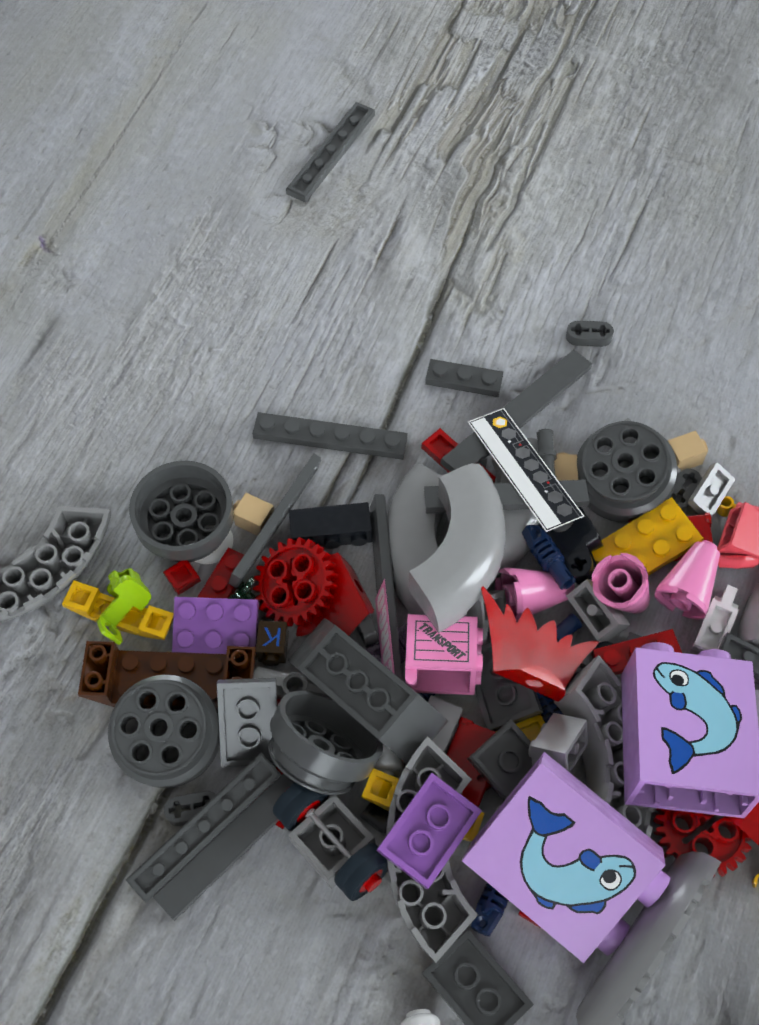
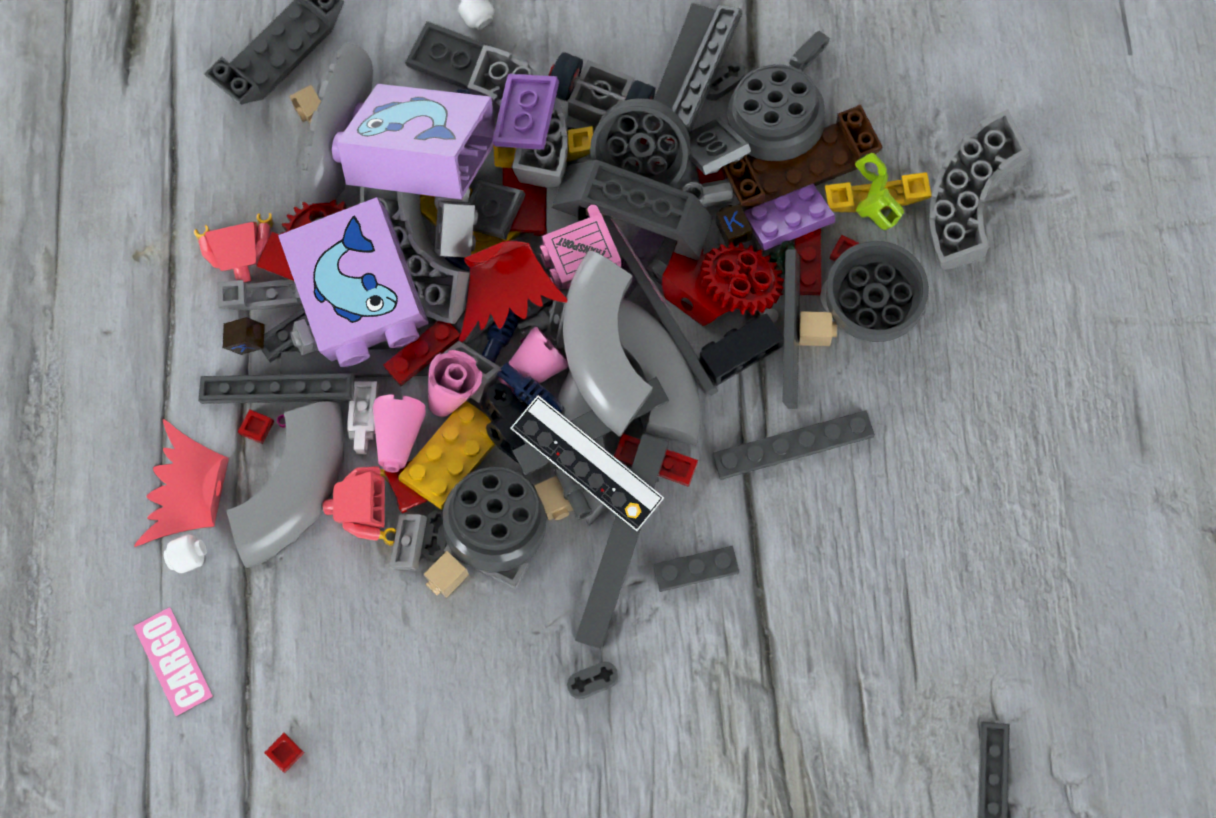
camera: 160 degrees right, 10 degrees up
(86, 794) = (809, 51): none -> dark grey beam
(668, 999) = (305, 103): none -> tan brick

